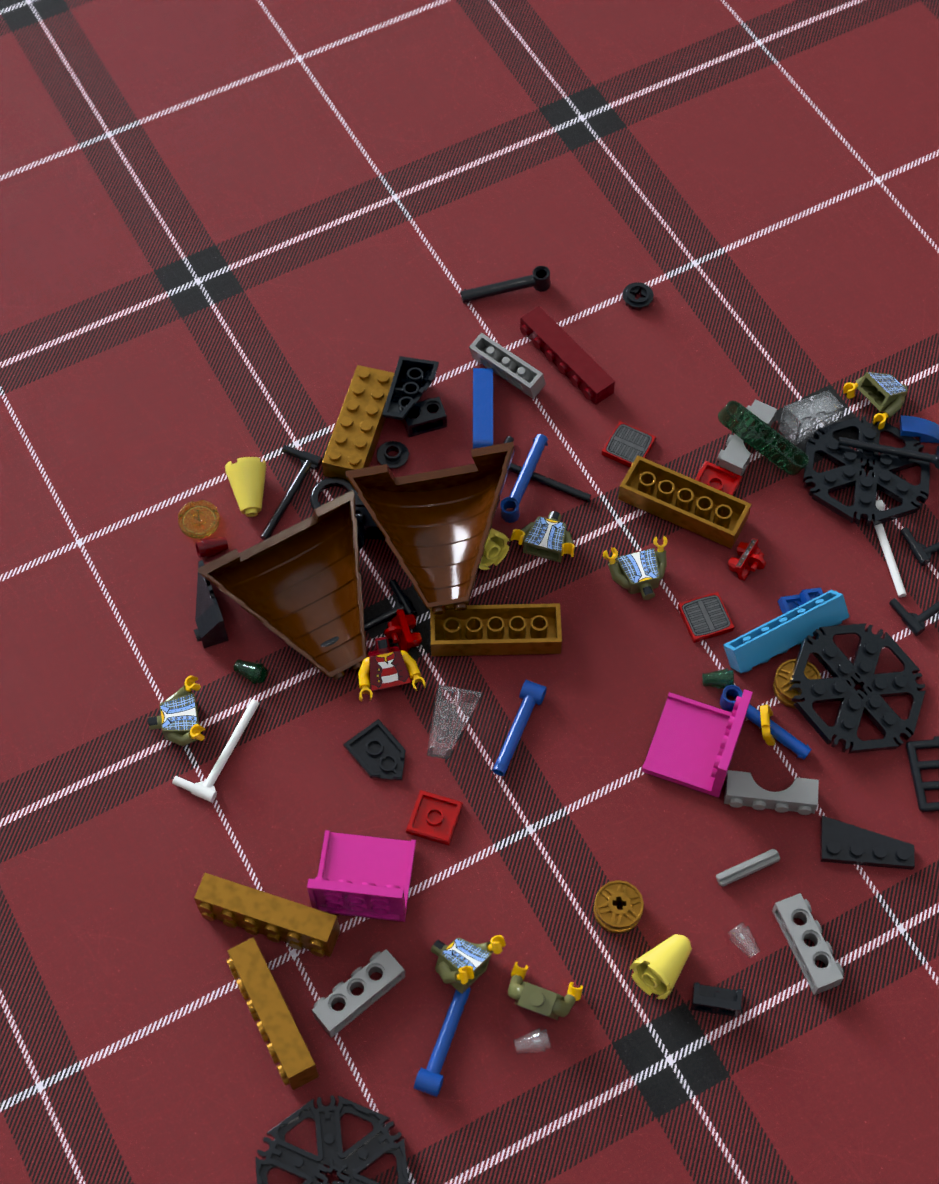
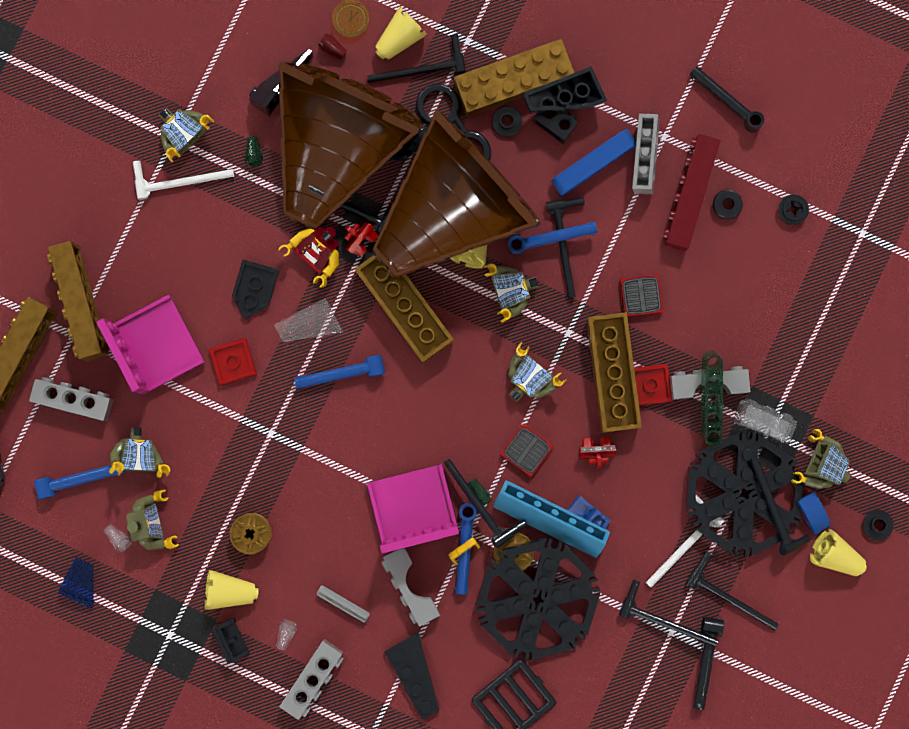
camera: 50 degrees right, 25 degrees up
(553, 1113) = (79, 583): none -> clear blue wing
(600, 331) = (736, 200): none -> black piece
(775, 677) = (500, 536): none -> black bar

